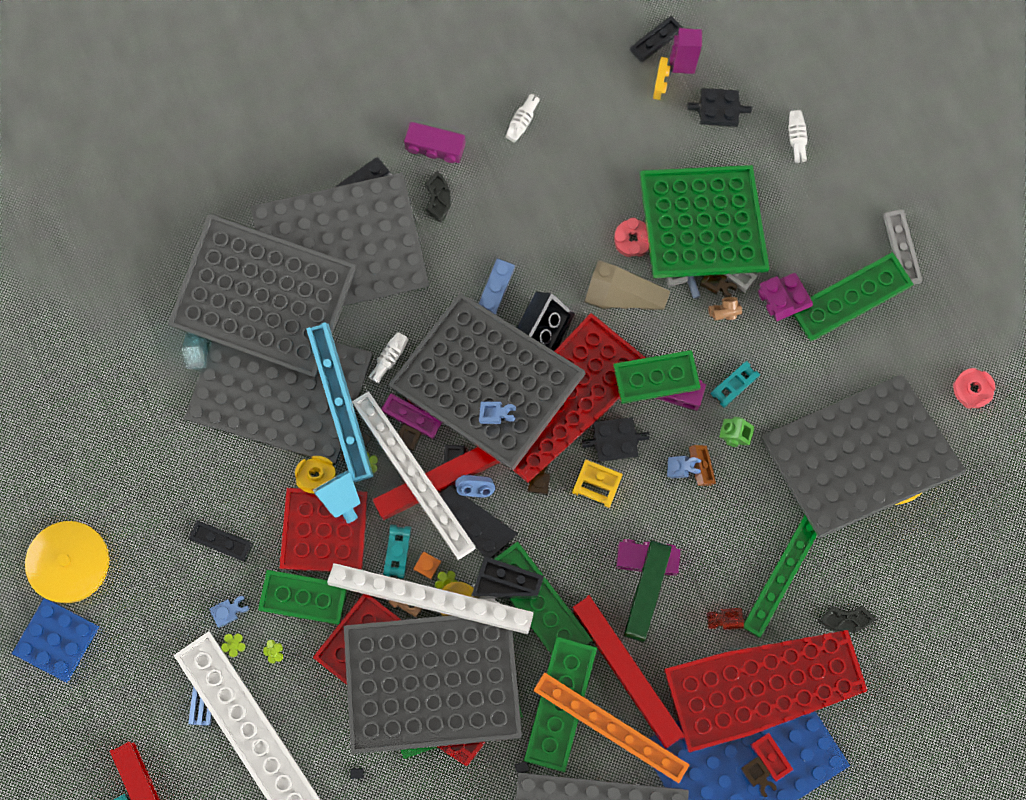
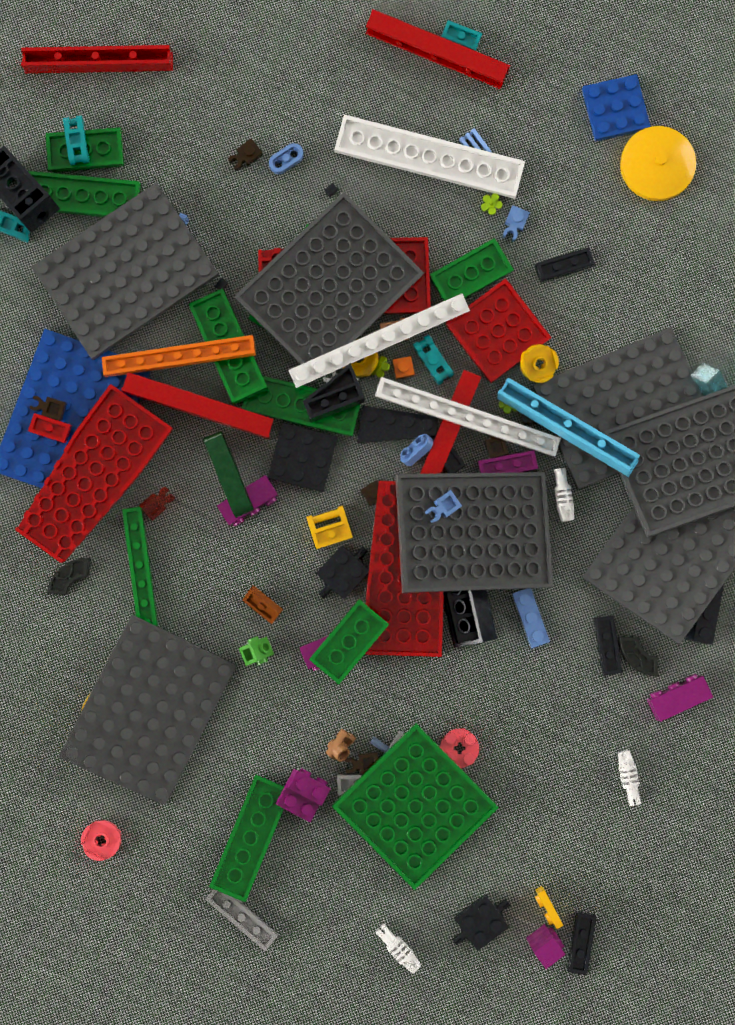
camera: 140 degrees right, 10 degrees up
(273, 651) = (458, 220): lime plant -> none
(339, 496) = (507, 358): medium azure torso -> none
(454, 222) = (607, 645): none -> black tile
(572, 559) = (302, 457): none -> black plate
(621, 289) = (434, 695): dark tan wedge -> none
(681, 466) = (276, 590): medium blue plate -> none
(735, 384) = (287, 691): teal plate -> none

